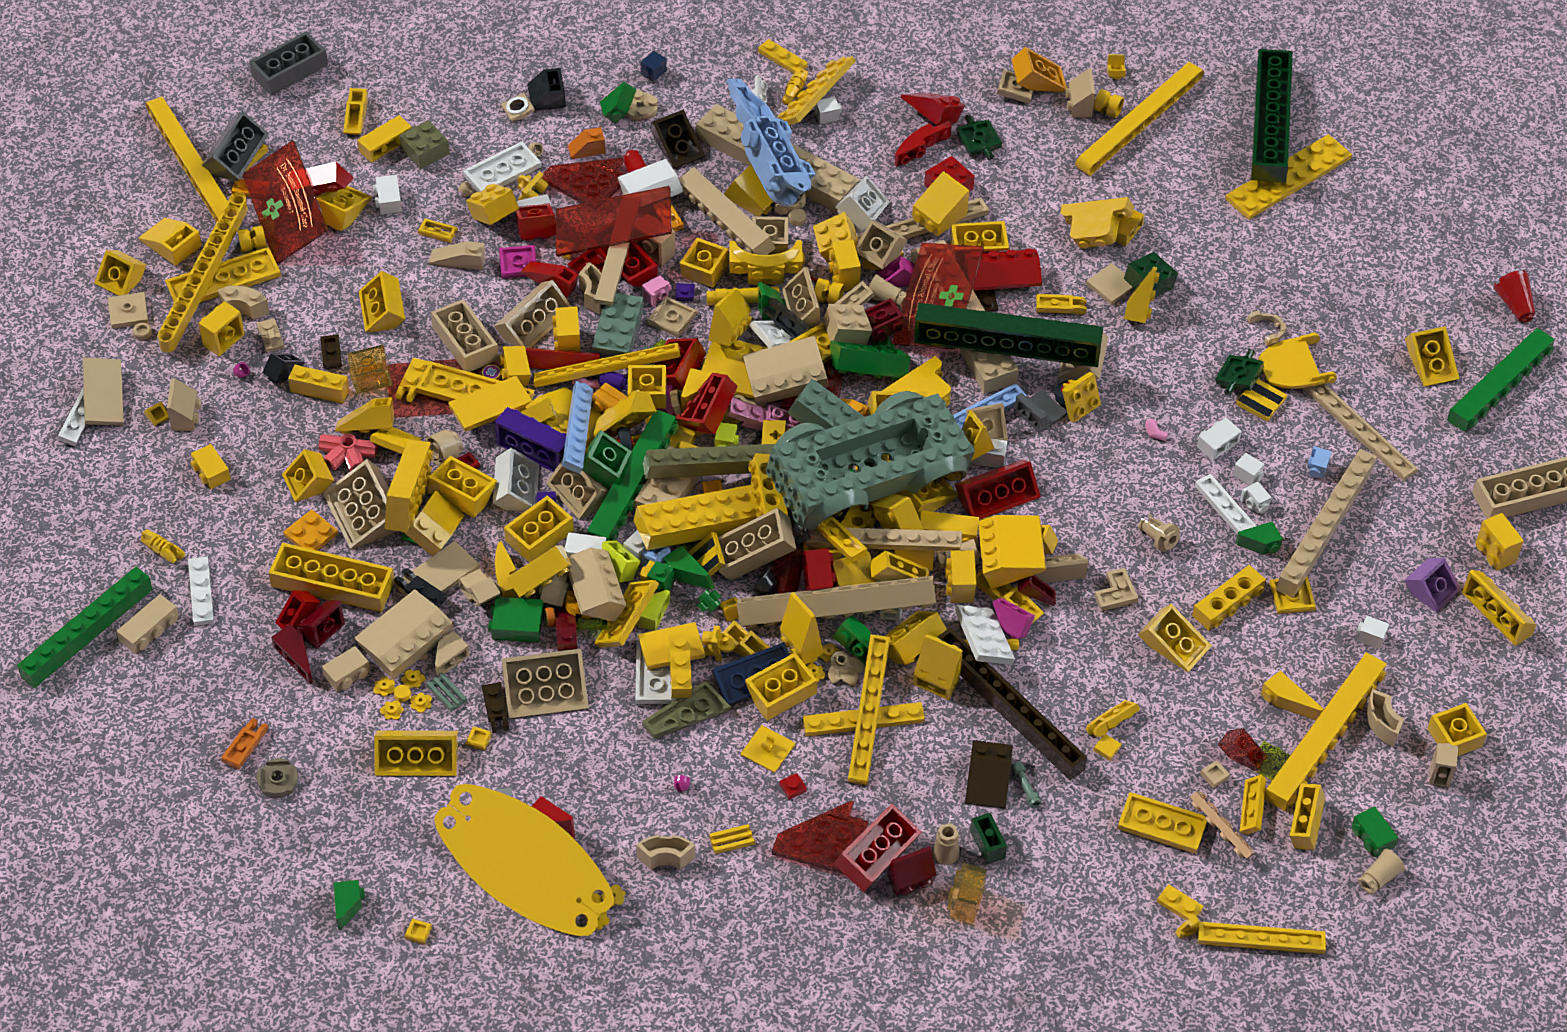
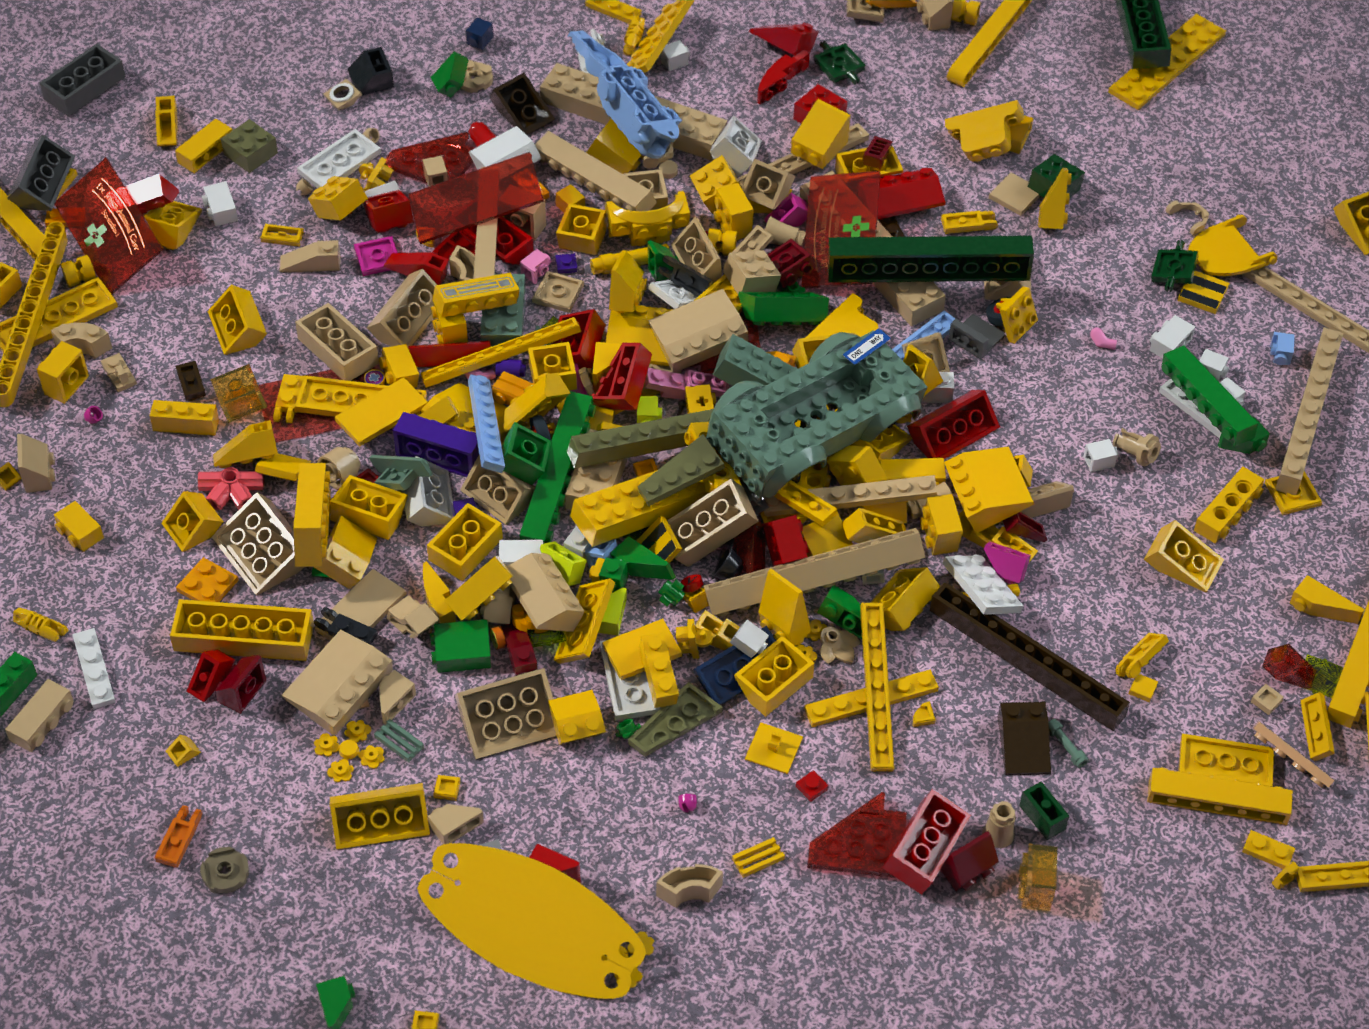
camera: 10 degrees left, 0 degrees up
(262, 672) = (182, 750): none -> yellow slope
(280, 366) = (137, 404): black slope -> none
(291, 647) = (211, 716): dark red slope -> none
(346, 669) = (279, 732): tan brick -> none
(478, 767) = (454, 821): none -> tan slope
(494, 458) = (398, 471): none -> sand green bracket
(495, 705) = (458, 747): dark brown hinge -> none
(584, 190) = (434, 170): none -> tan brick
(587, 143) = (427, 122): orange slope -> none
(592, 310) = (475, 294): none -> yellow brick
(601, 695) = (576, 717): none -> yellow slope
(643, 712) = (627, 728): none -> green plate
(700, 230) = (569, 195): none -> yellow brick
(729, 595) = (692, 583): none -> red tile
(737, 495) = (685, 469): none -> olive wing
(765, 651) = (750, 639): none -> white brick
(906, 741) = (924, 715): none -> yellow tile
(926, 407) = (866, 346): none -> sticker
(938, 667) = (943, 628): yellow slope -> none
(986, 237) = (874, 155): none -> dark red slope
(1119, 594) = (1112, 515): tan plate -> none
(1124, 536) = (1100, 455): none -> white brick
(1148, 850) = (1220, 796): none -> yellow brick
(1234, 496) = (1209, 396): none -> green brick

